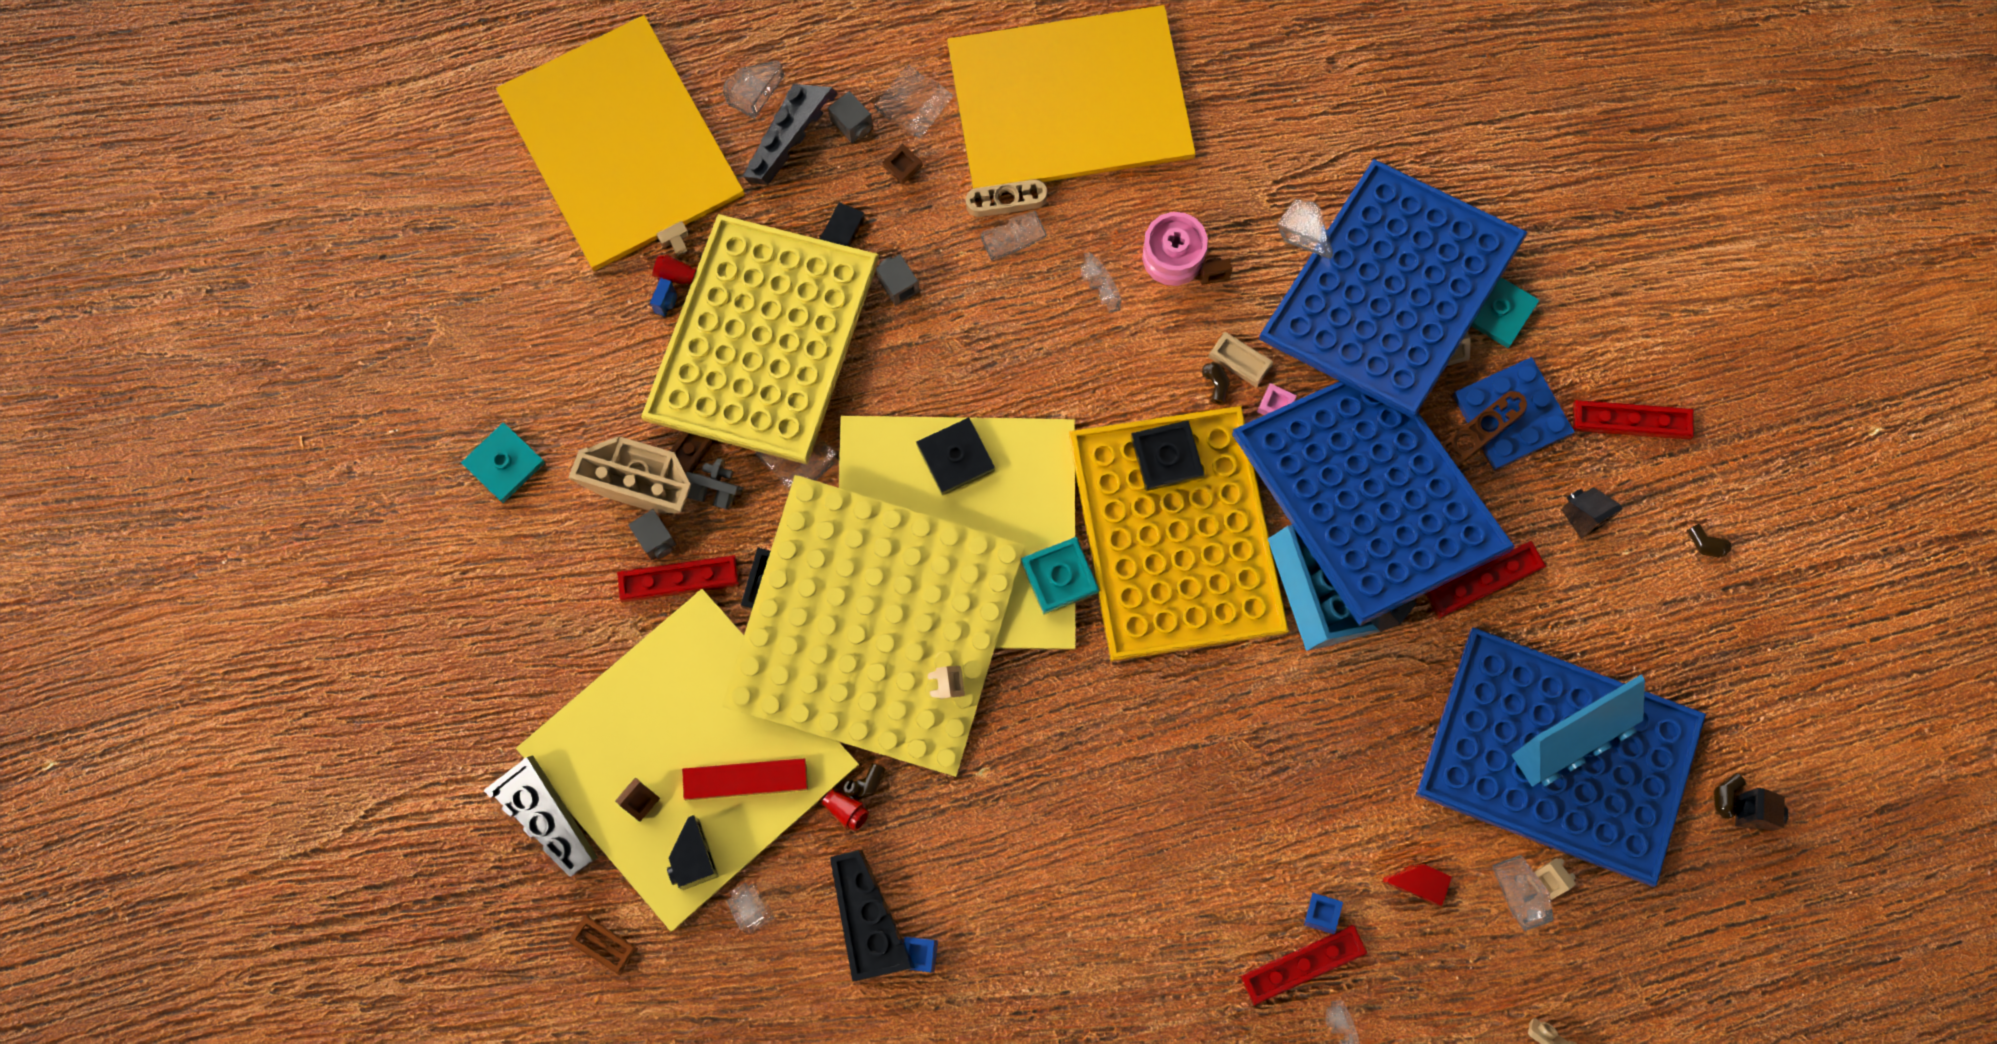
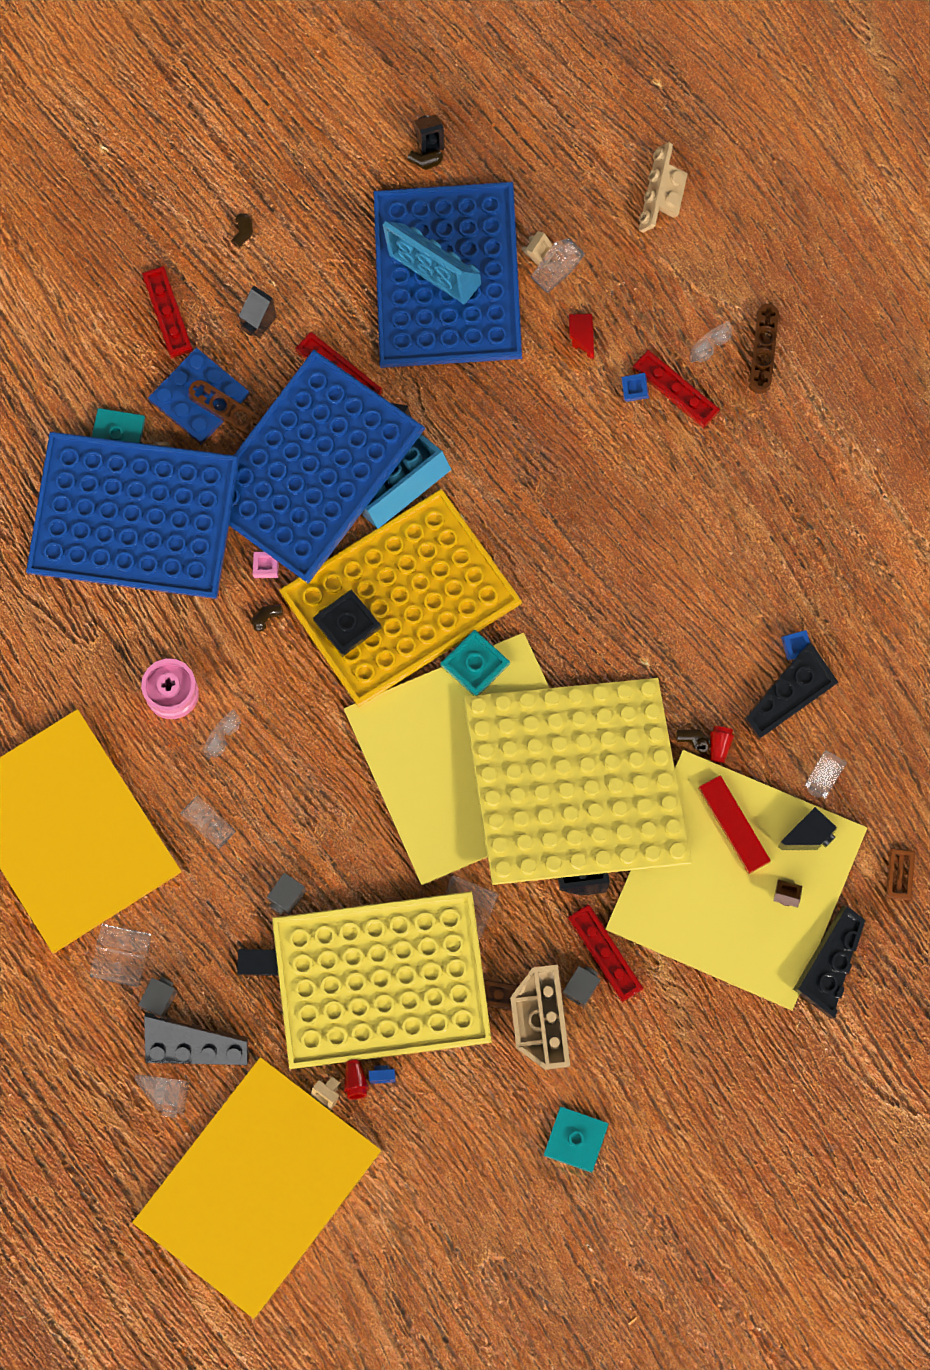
camera: 115 degrees left, 0 degrees up
(725, 492) = (515, 957): dark grey hips -> none
(902, 164) = (182, 937): reddish brown plate -> none
(949, 682) = (594, 703): tan tile -> none
(955, 456) = (415, 781): black plate -> none
(1027, 204) = (179, 832): tan beam -> none
(1215, 270) = (173, 651): reddish brown plate -> none
(1240, 359) = (239, 607): tan tile -> none
(1306, 228) = (110, 596): clear slope -> none

